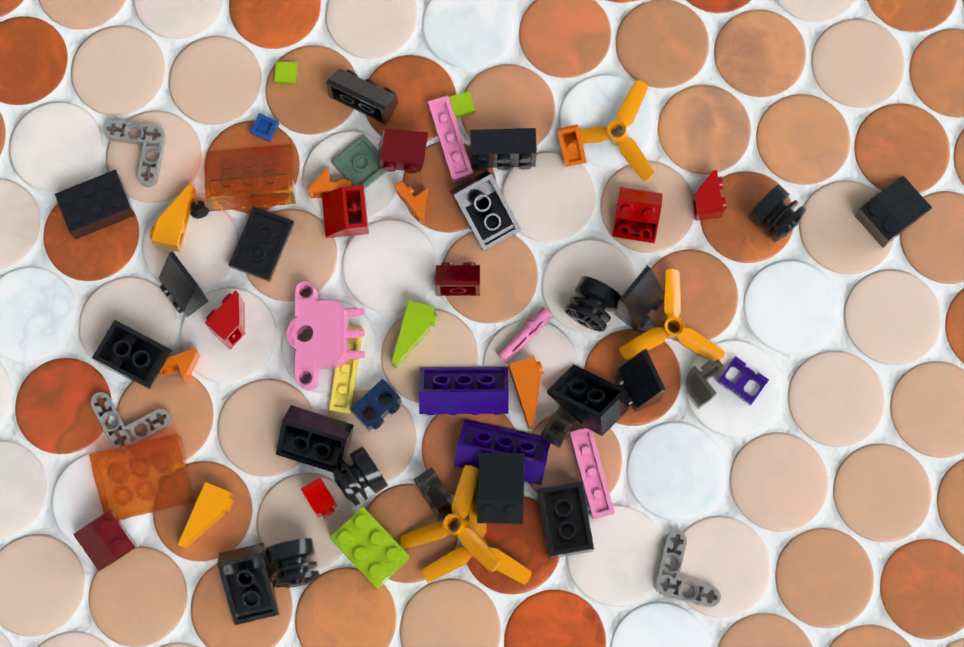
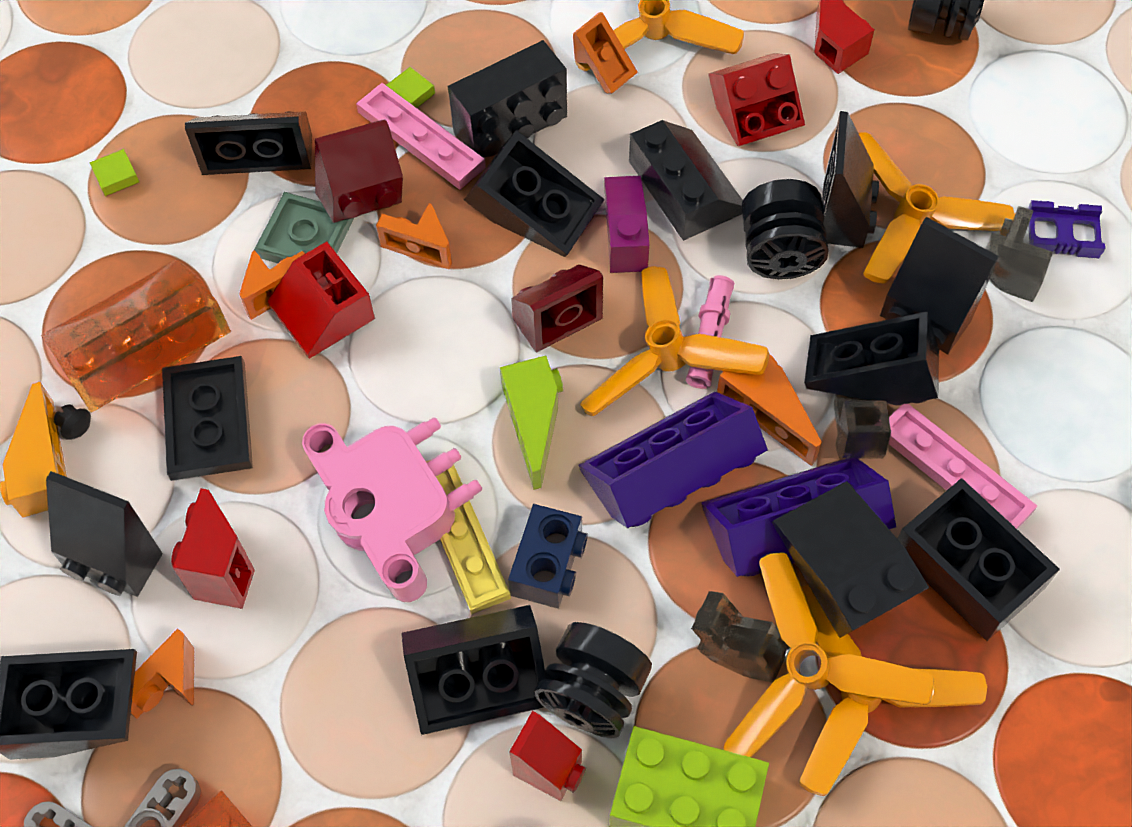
camera: 30 degrees left, 15 degrees down
(264, 128) = (120, 255): blue plate -> none
(504, 318) = (670, 349): none -> light orange piece
(523, 249) = (626, 224): none -> magenta slope
(570, 241) = (683, 178): none -> black slope

